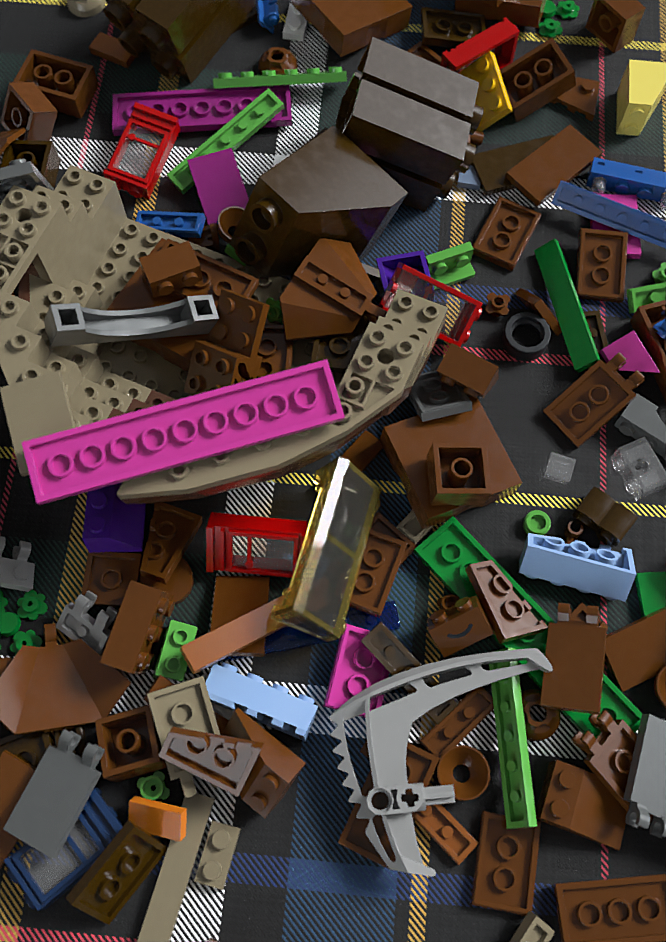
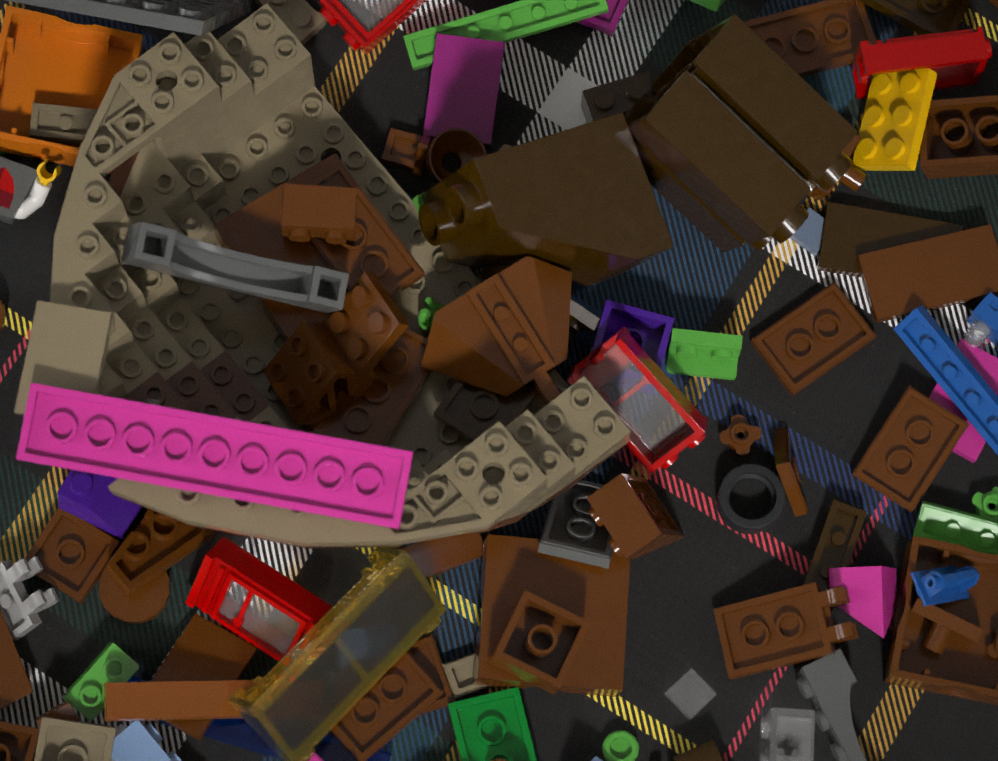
camera: 25 degrees right, 5 degrees up
(138, 629) = (71, 633): reddish brown brick -> none
(174, 223) = (372, 109): blue tile -> none
(567, 306) = (827, 483): green tile -> none

